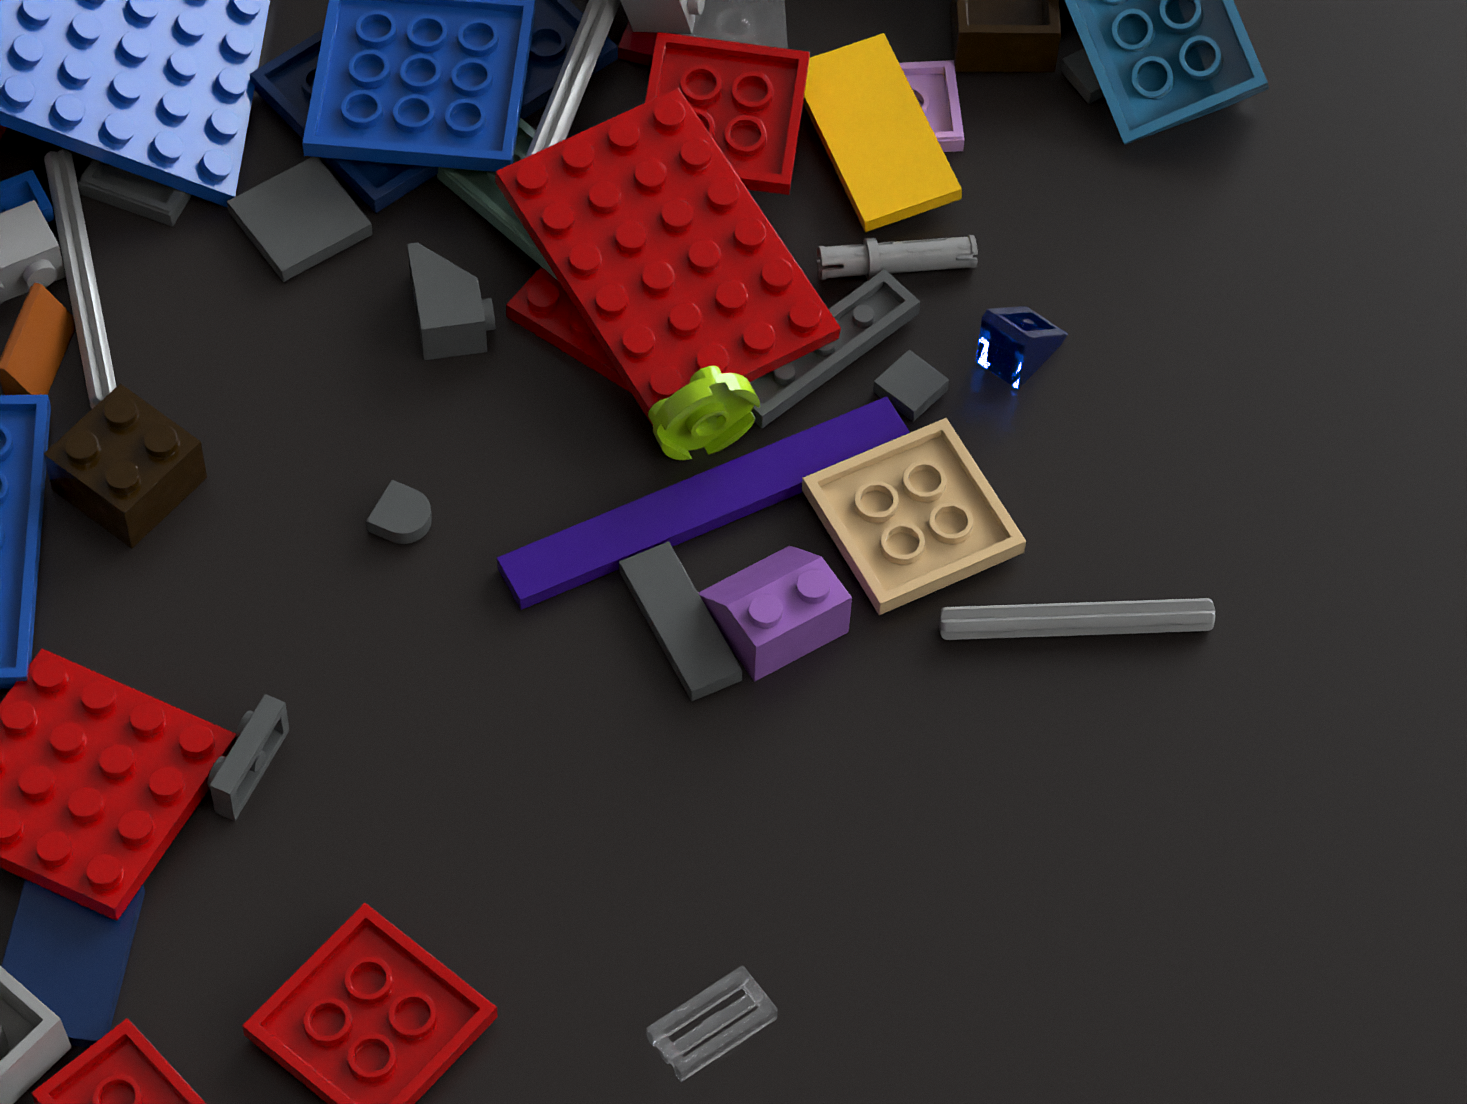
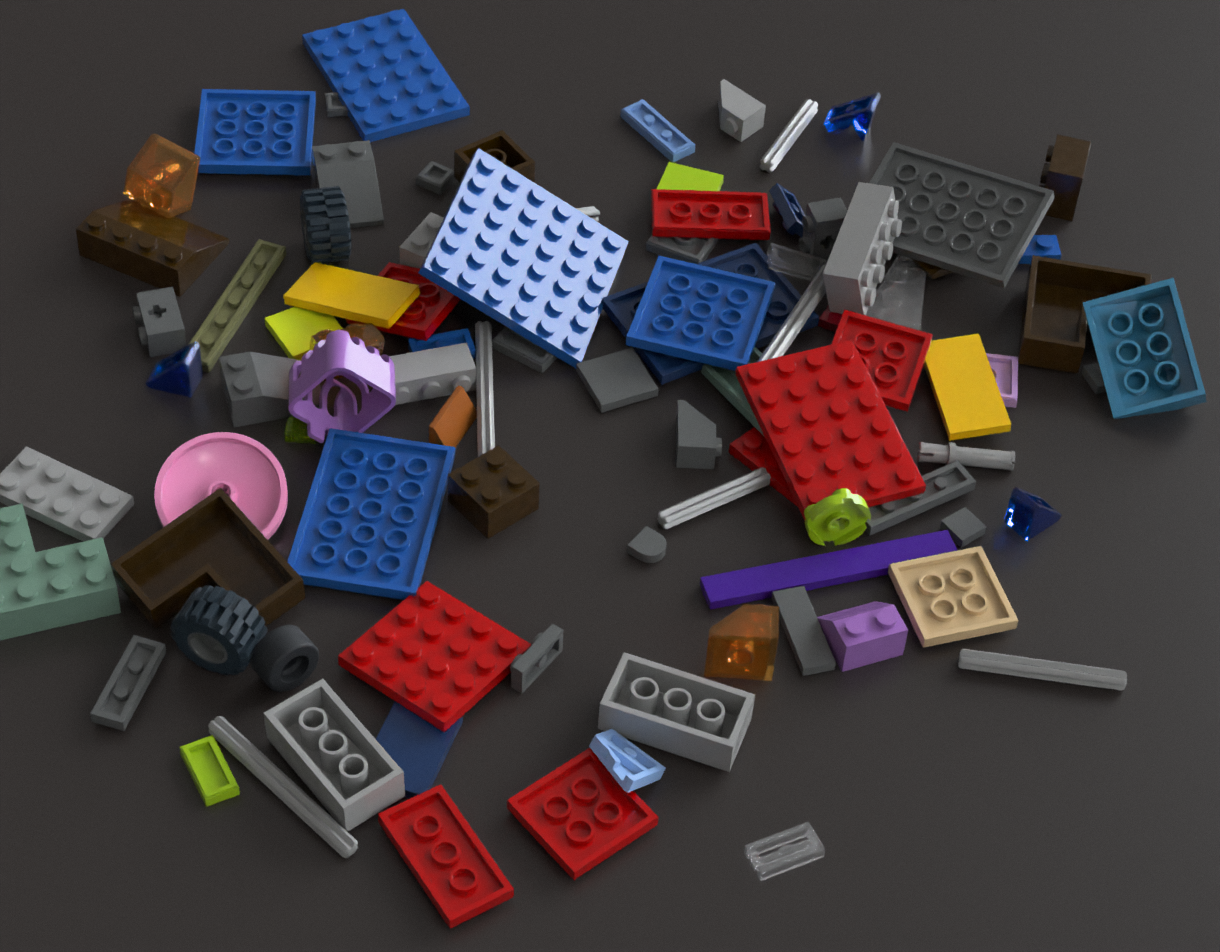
camera: 10 degrees right, 10 degrees down
(426, 917) = (625, 761): none -> light blue wing
(495, 407) = (713, 498): none -> light grey axle
(495, 813) = (676, 711): none -> light grey brick
(588, 671) = (744, 644): none -> clear orange slope

